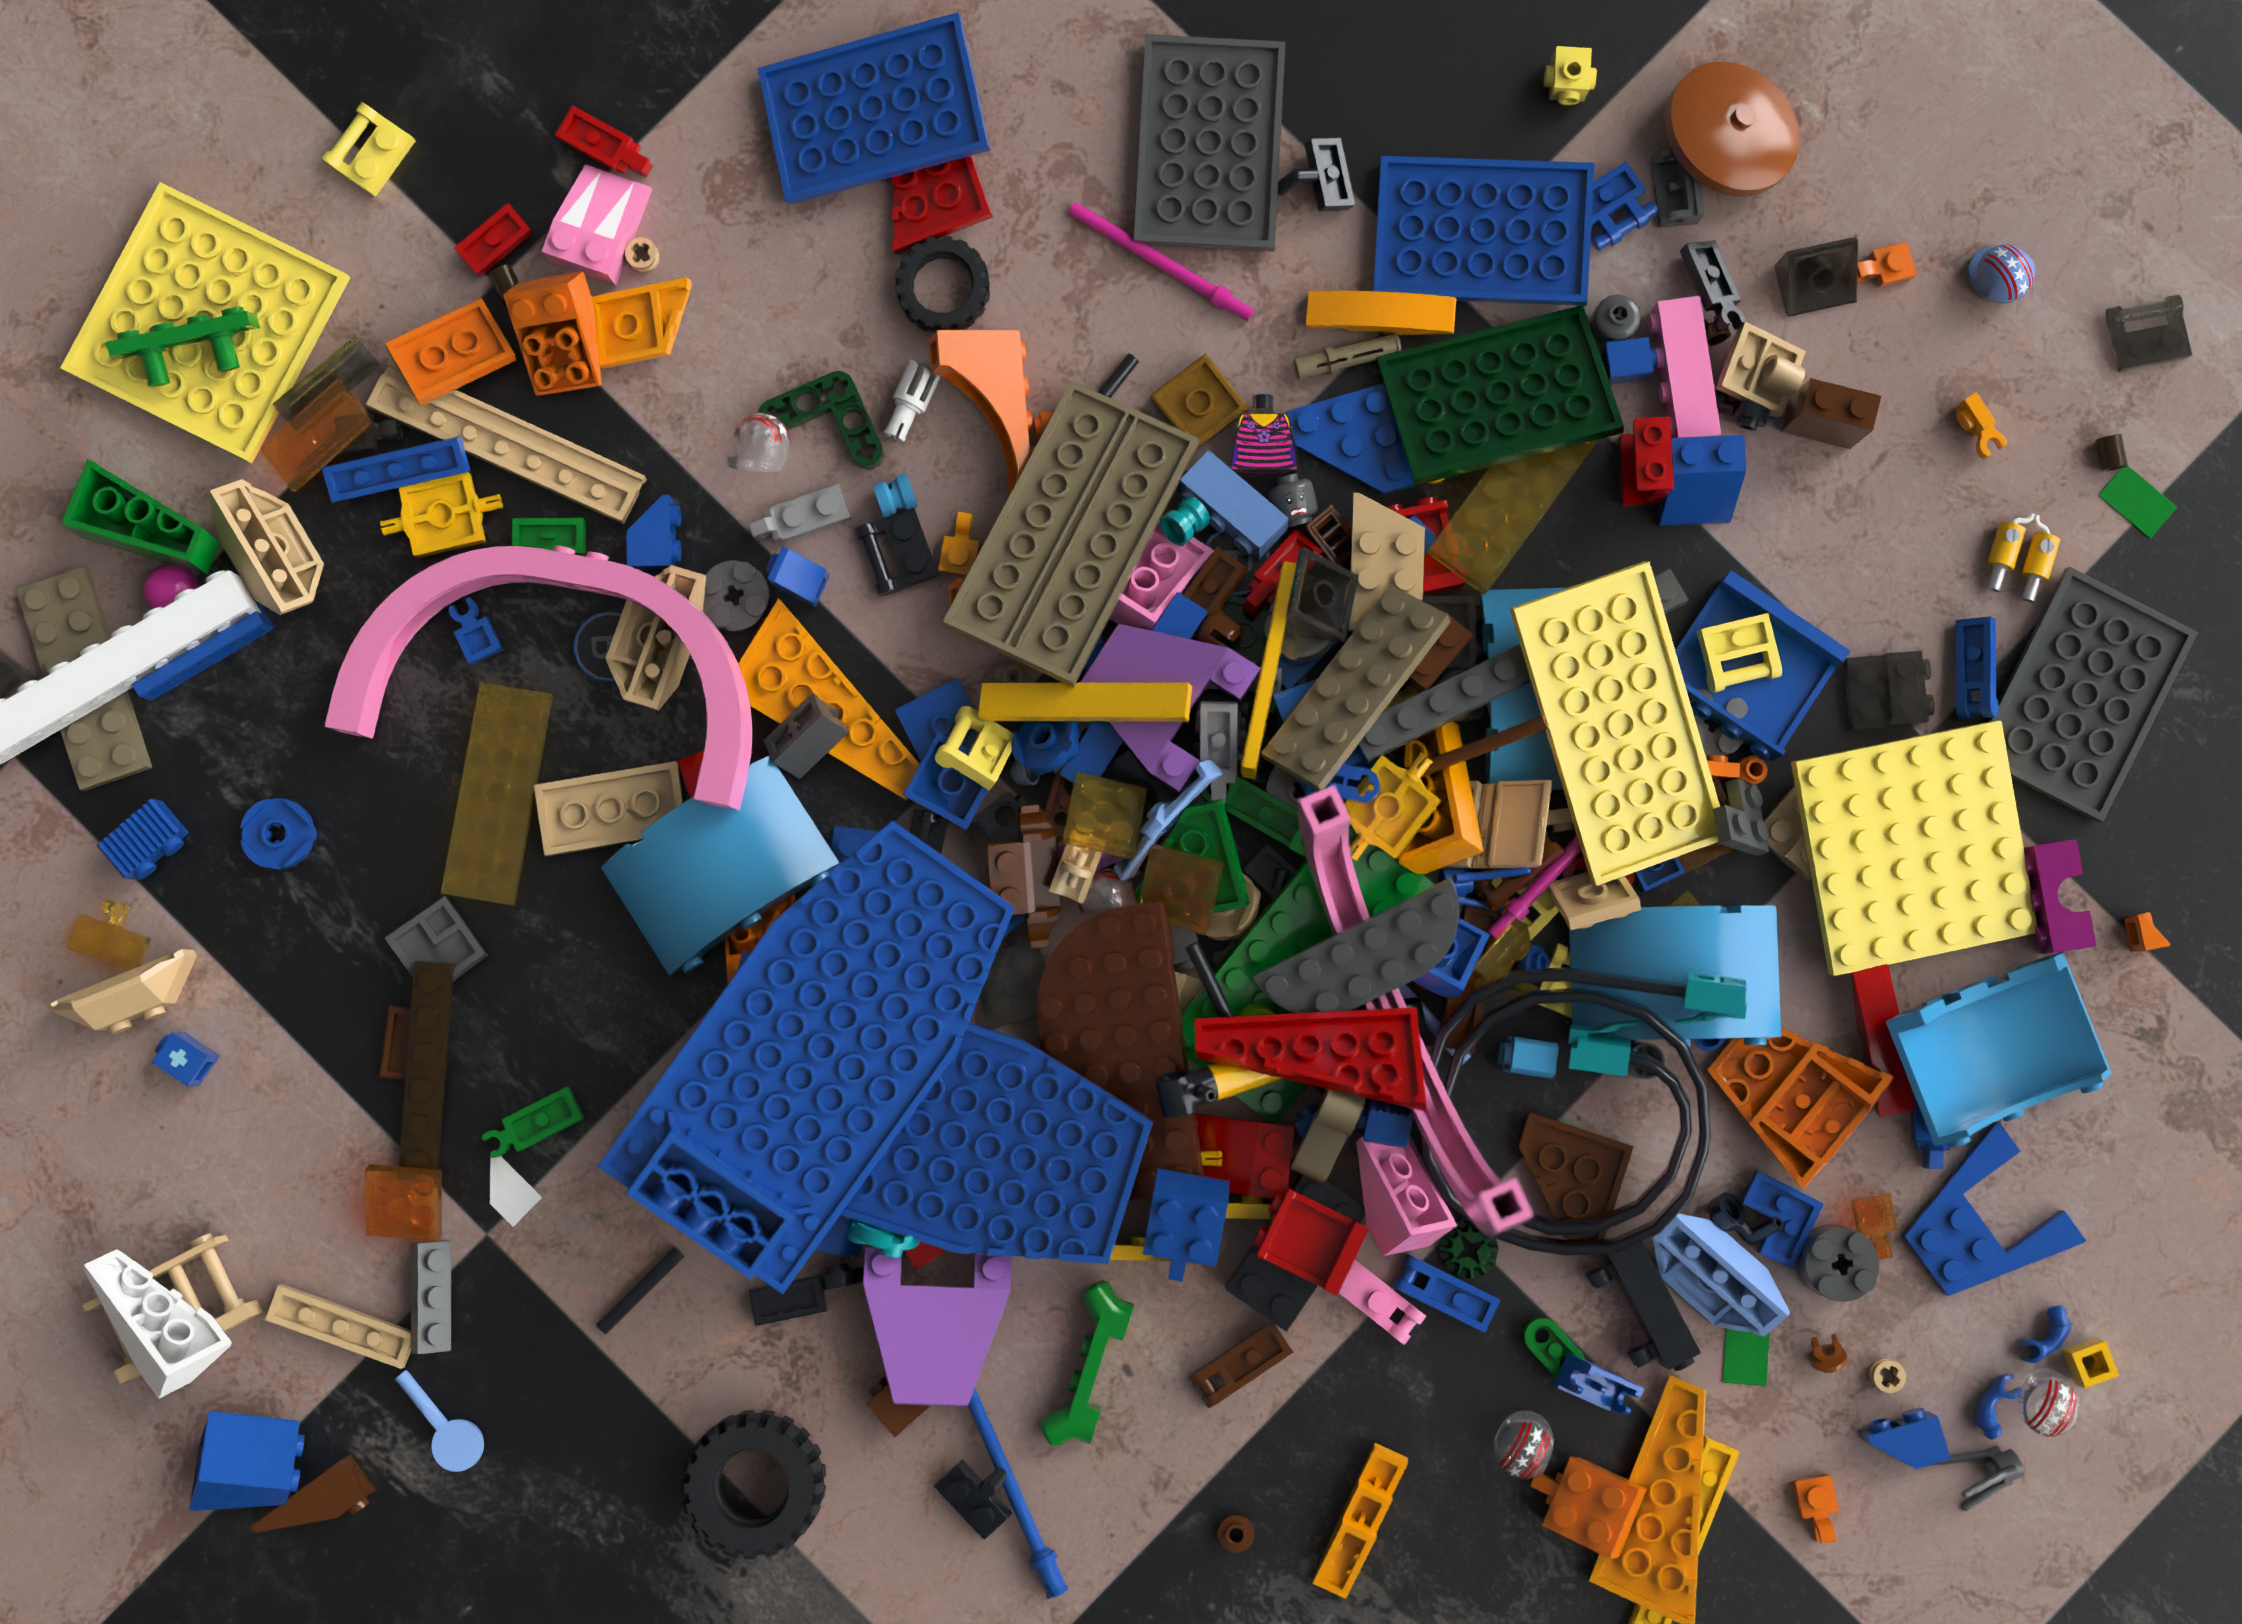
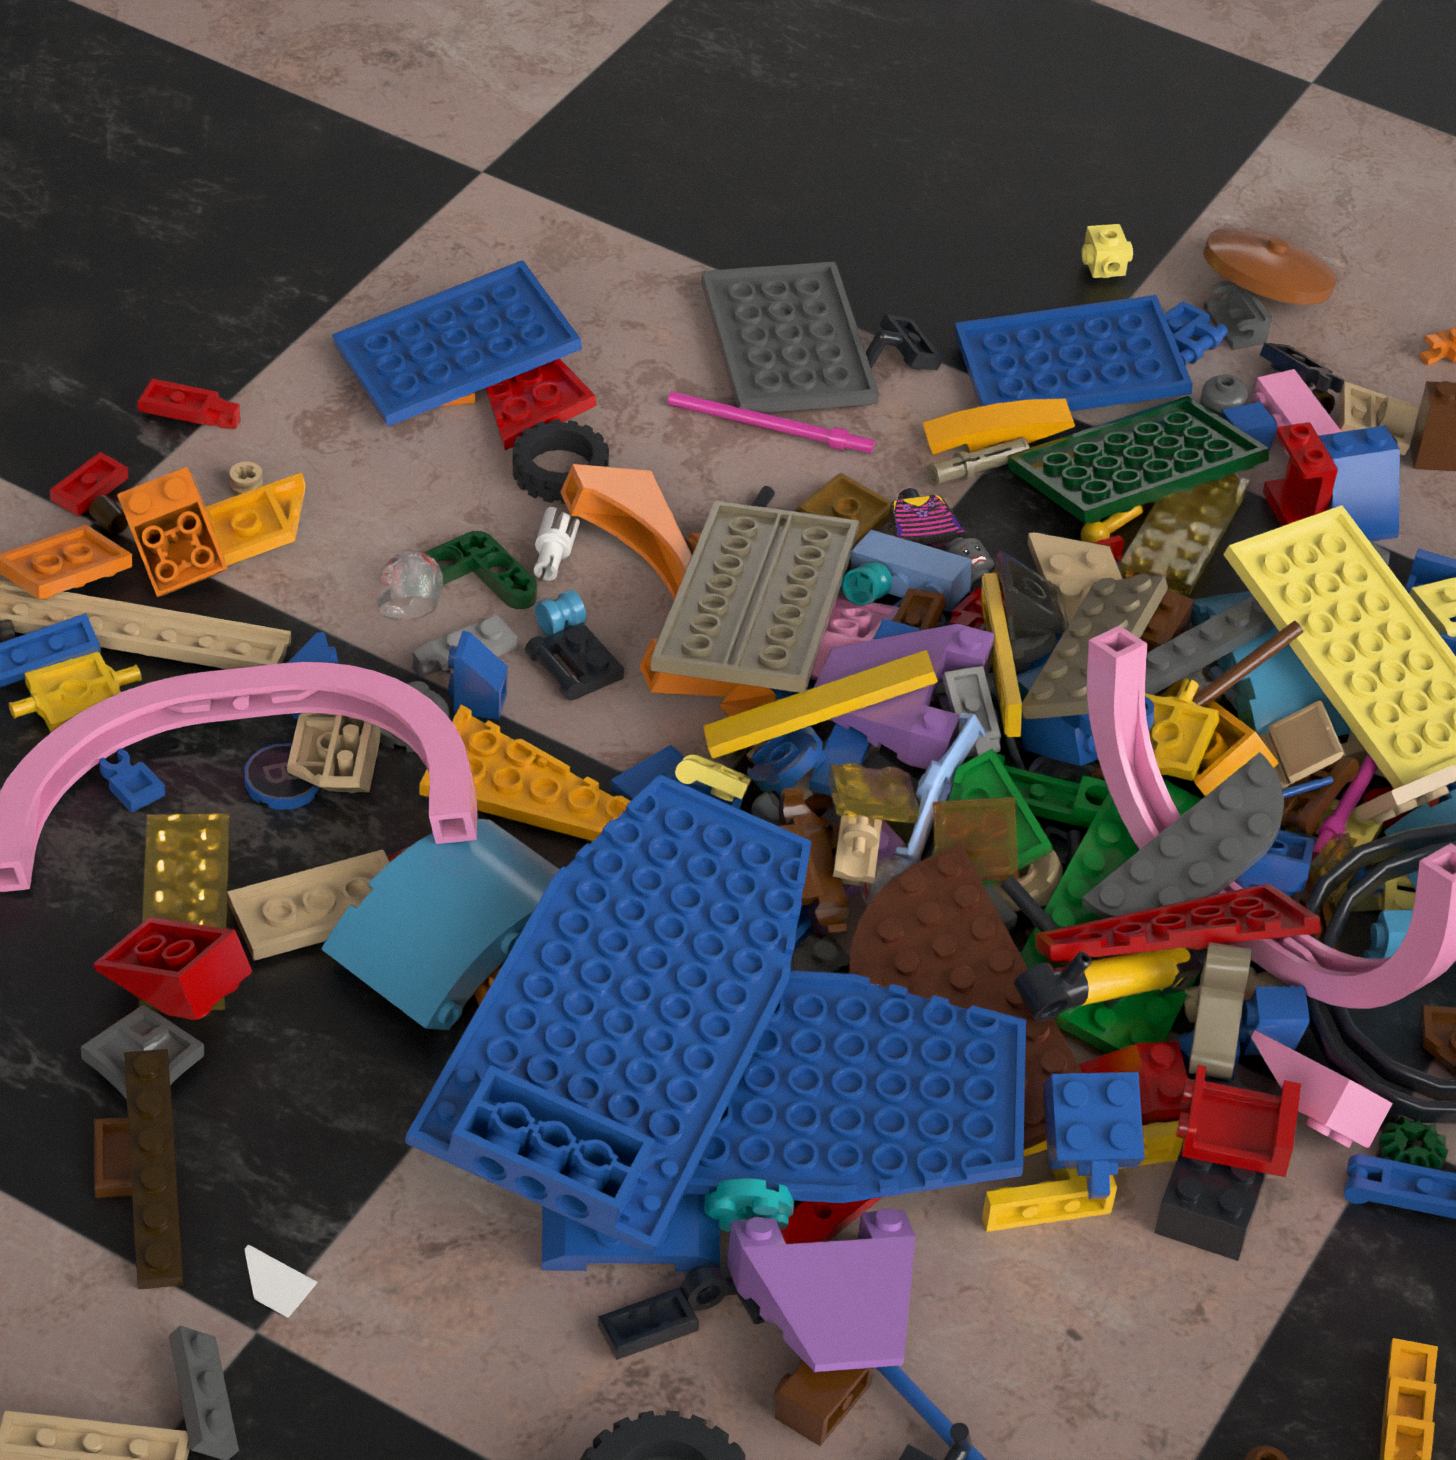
camera: 20 degrees left, 40 degrees down
(403, 1202) = (150, 1294): clear orange plate -> none
(469, 874) = (177, 965): none -> red slope
(537, 1122) = (296, 1200): green plate -> none
(596, 224) = (206, 454): bright pink slope -> none
(640, 1290) = (462, 1350): black bar -> none
(805, 736) = (526, 799): dark grey hinge -> none
(959, 551) = (635, 646): light orange plate -> none
(1080, 1417) = (1039, 1370): green plate -> none
(1241, 1363) = (1204, 1293): reddish brown plate -> none
(1355, 438) = (1008, 513): blue plate -> none
(1380, 1301) = (1330, 1210): bright pink plate -> none
(1818, 276) = (1393, 350): clear smoke slope -> none

